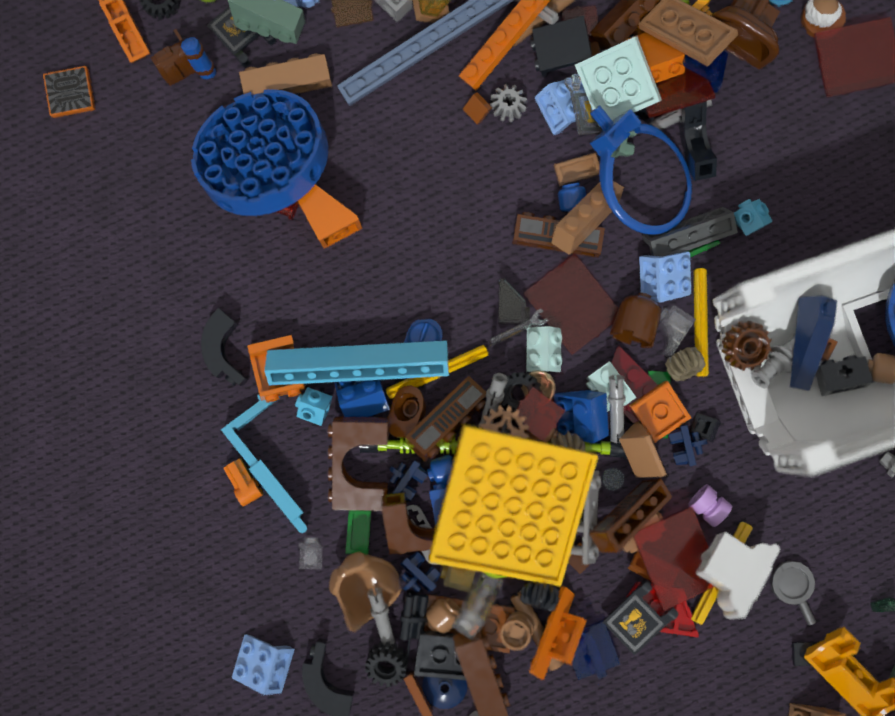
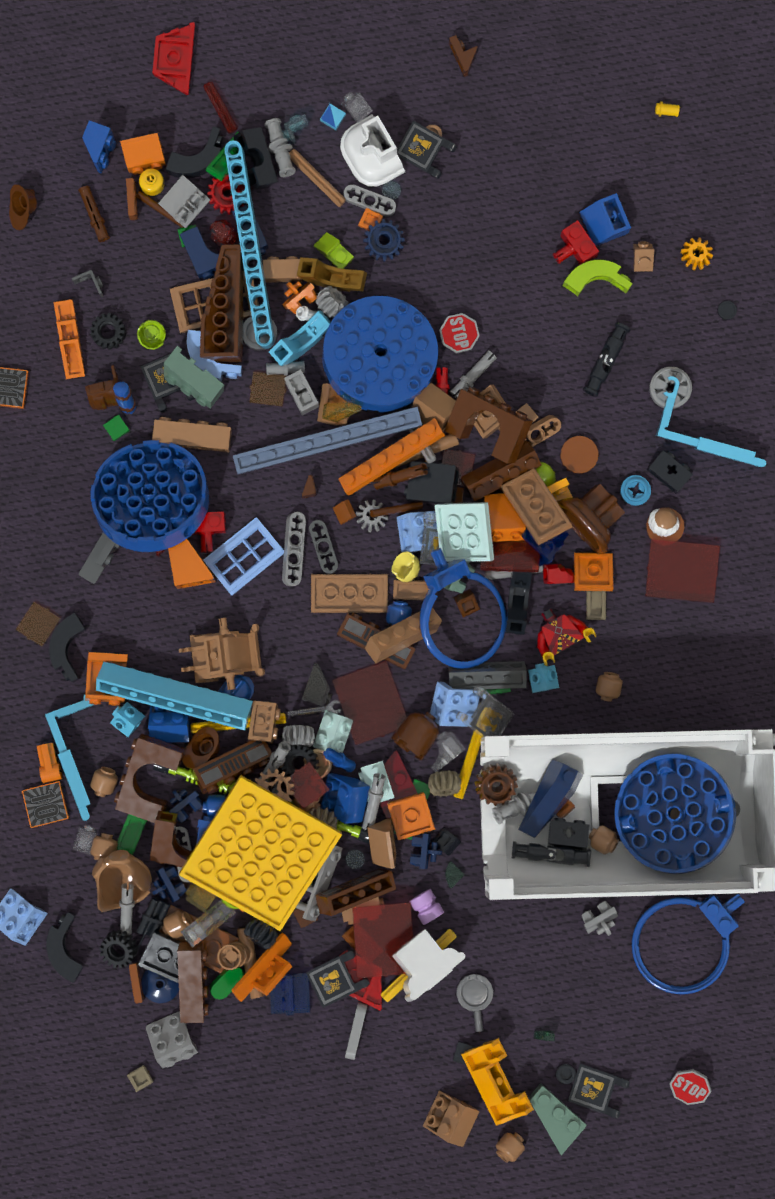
camera: 15 degrees right, 0 degrees up
(183, 334) = (38, 624): none -> clear orange piece
(201, 97) = (116, 428): none -> green tile
(227, 241) = (98, 559): none -> dark grey bracket
(253, 529) = (45, 804): none -> tile
(310, 483) = (104, 781): none -> medium nougat head
(332, 555) = (103, 846): none -> medium nougat head
(337, 167) = (212, 524): none -> red brick
(398, 301) = (224, 655): none -> medium nougat piece
(402, 199) = (233, 542): none -> light blue piece
(432, 95) = (309, 489): none -> reddish brown slope
(435, 165) = (297, 549): none -> light grey beam
(463, 137) = (332, 558): none -> dark grey beam
(465, 360) = (264, 721): none -> medium nougat bracket
(508, 362) = (298, 735): none -> light grey gear
(511, 194) = (349, 593): none -> medium nougat tile
(517, 663) = (224, 983): none -> green tile
(522, 90) = (396, 509): none -> reddish brown bar
(526, 48) = (393, 478): none -> reddish brown pin
(562, 375) = (339, 760): none -> blue axle
(563, 144) = (406, 566): none -> light yellow hair
(640, 164) = (466, 603): none -> reddish brown slope
(679, 671) = (356, 1031): none -> light grey beam
(708, 276) = (489, 717): none -> clear flag
(724, 461) = (453, 874): none -> tile
(728, 102) = (557, 574): none -> red rock
(754, 164) = (560, 634): none -> torso
(765, 87) = (593, 571): none -> orange tile
(777, 118) = (595, 605): none -> dark tan tile
(816, 406) = (538, 852): none -> black piece
(824, 203) = (609, 686): none -> medium nougat head

